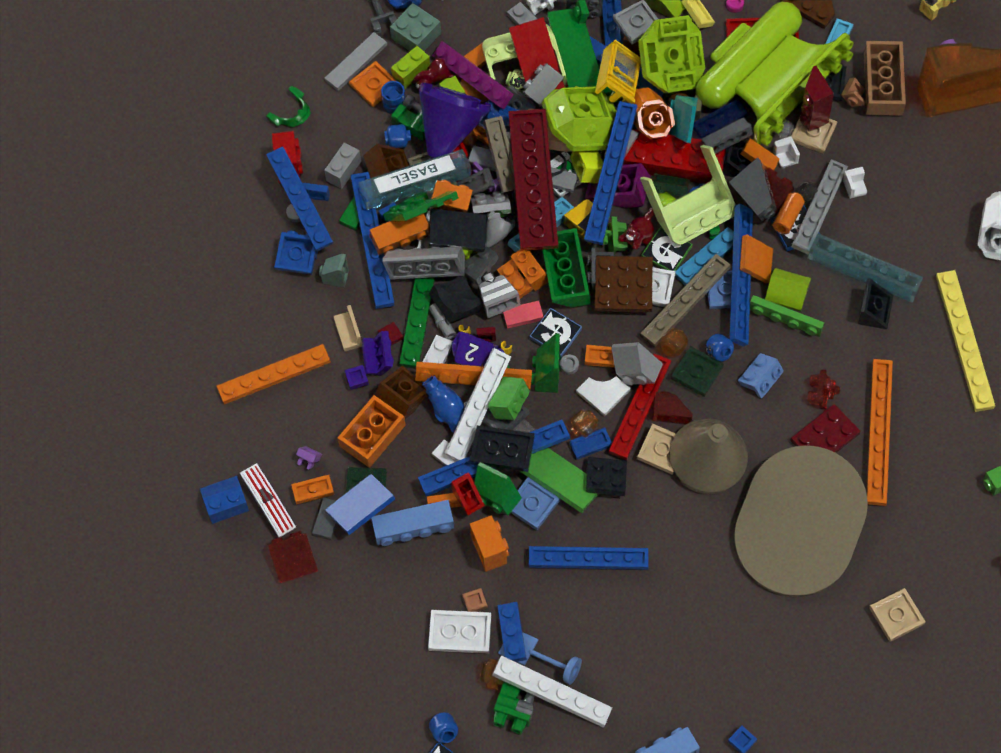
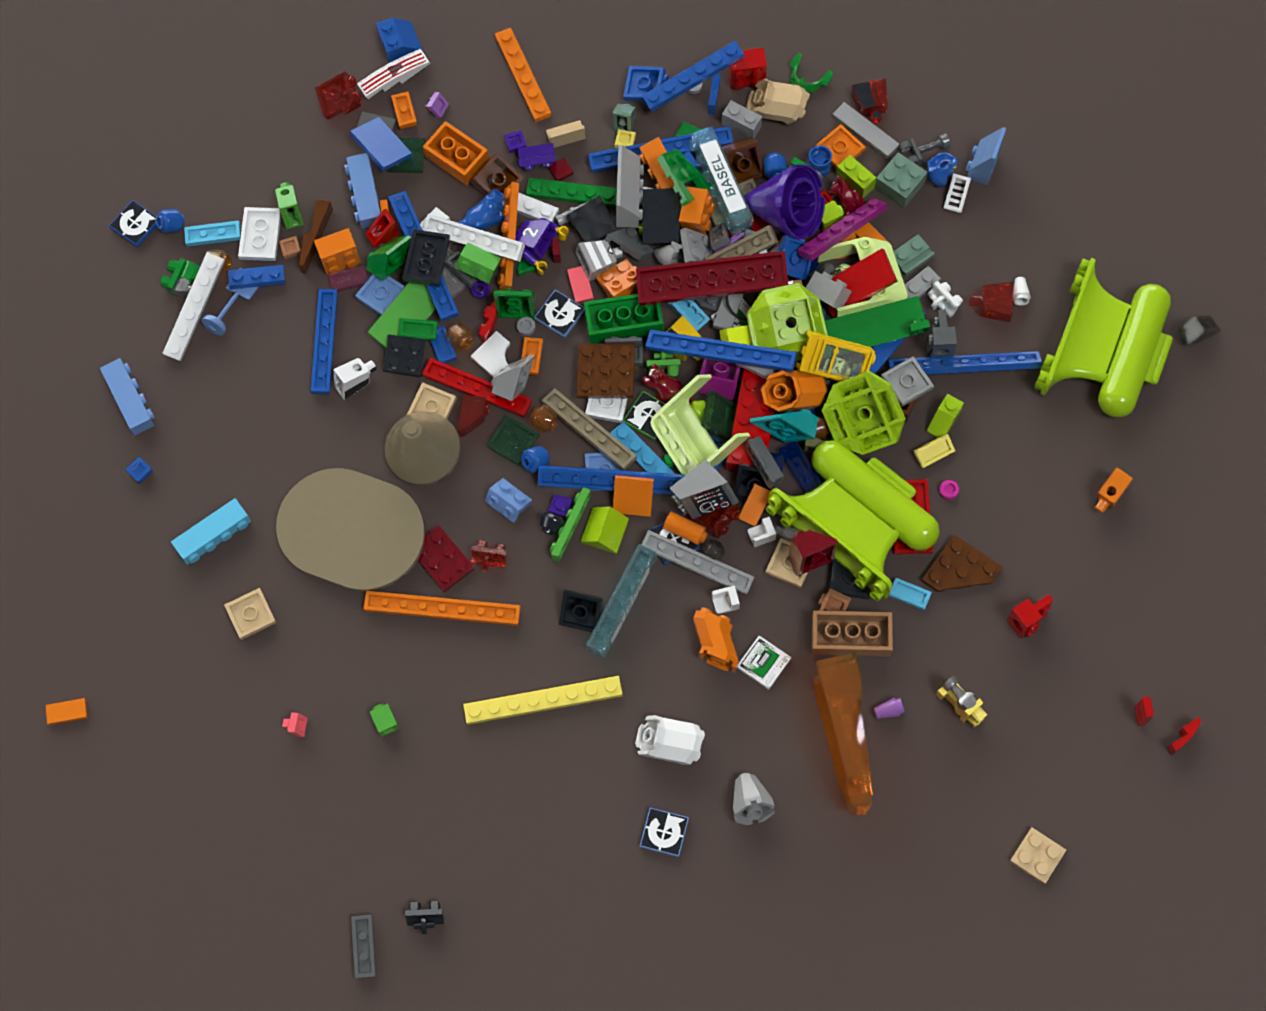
camera: 90 degrees right, 5 degrees up
(324, 53) = (871, 99): none -> clear red torso
(325, 131) = (778, 101): none -> tan brick
(356, 275) = (625, 138): none -> light yellow tile
(427, 598) = (286, 199): none -> bright green torso
(458, 682) = (212, 233): none -> medium azure plate
(472, 578) = (320, 219): none -> reddish brown slope
(491, 23) = (913, 255): none -> sand green plate
(514, 536) = (348, 278): none -> clear pink tile
(533, 403) = (480, 294): none -> dark purple plate
(562, 394) = (490, 318): none -> red slope
(577, 462) = (418, 329): none -> green tile
(633, 523) = (352, 377): none -> white torso
(764, 328) = (560, 505): none -> dark purple plate
(786, 332) = (551, 523): none -> black cone
(810, 659) = (211, 531): none -> medium azure brick
(899, 186) = (715, 639): none -> orange brick
(913, 153) = (763, 662): none -> white tile

